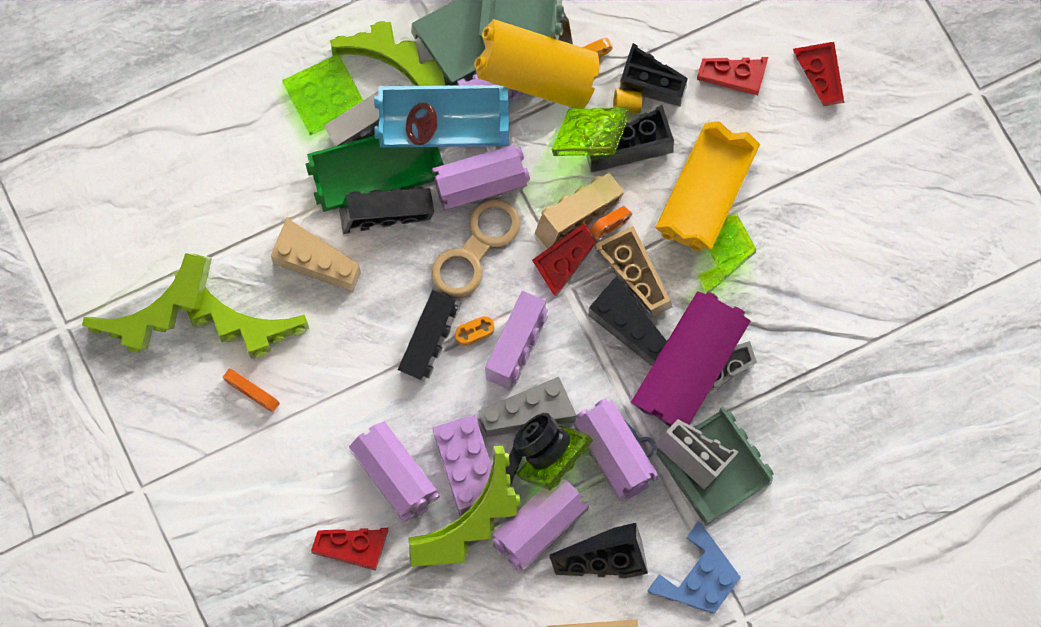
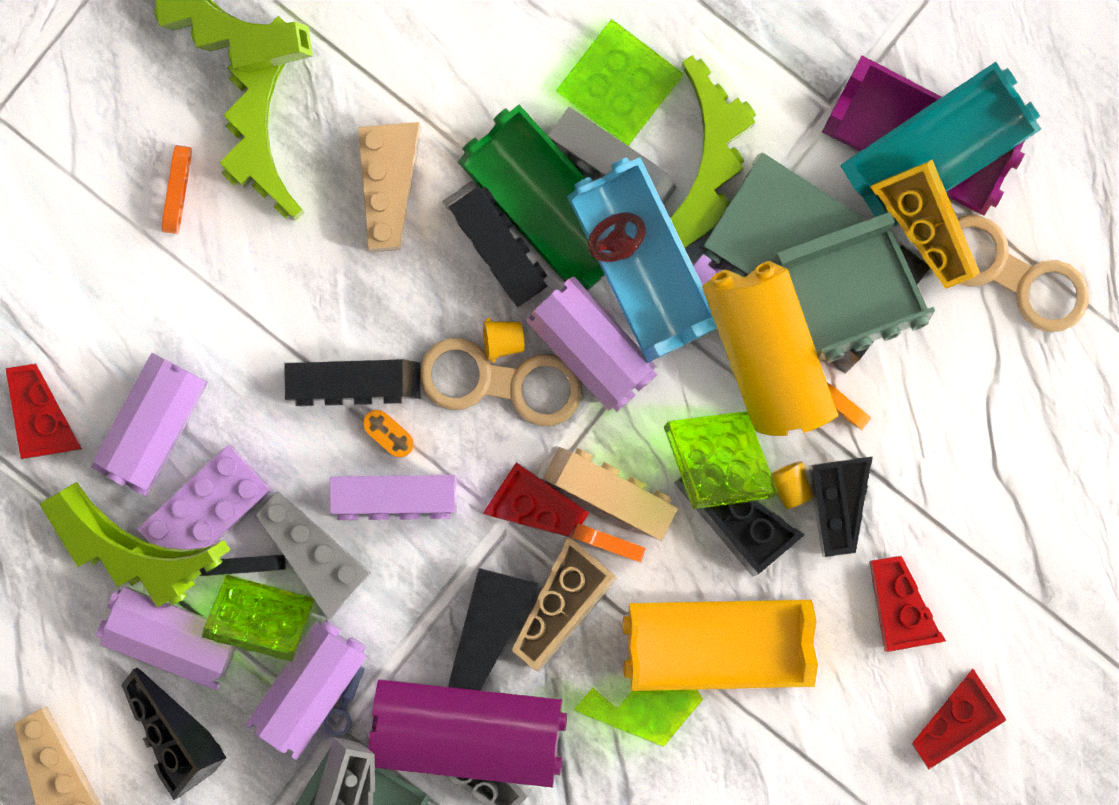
camera: 60 degrees right, 15 degrees up
(449, 233) = (502, 338): none -> yellow piece
(541, 441) = (268, 593): black wheel -> none

